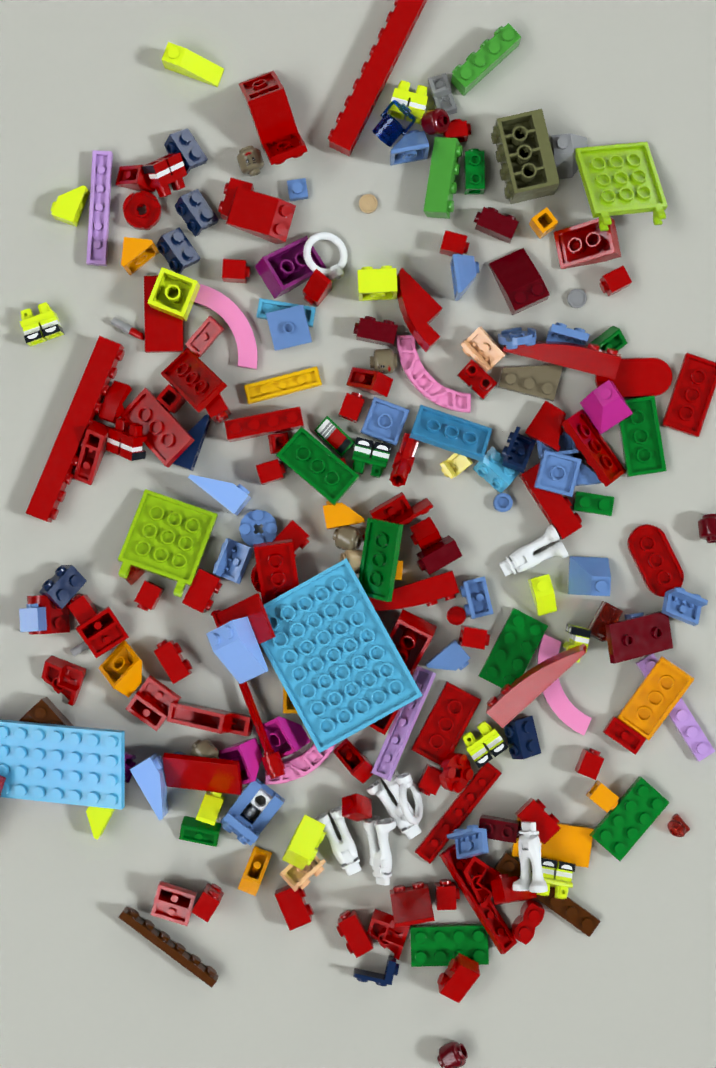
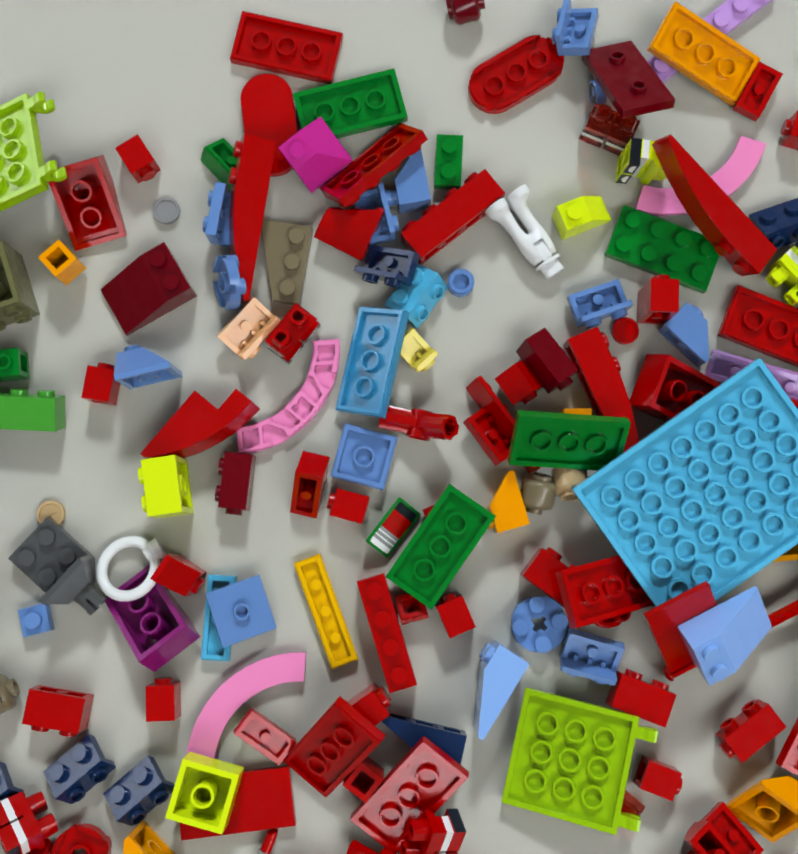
camera: 100 degrees left, 5 degrees down
(261, 215) = (76, 671): red slope -> none
(331, 207) = (59, 567): none -> dark grey plate
(362, 456) = (418, 460): green hips -> none
(384, 361) = (278, 466): dark tan head -> none
(496, 224) = (69, 328): dark red brick -> none
(557, 473) = (415, 206): medium blue plate -> none
(589, 576) = (550, 155): medium blue slope -> none

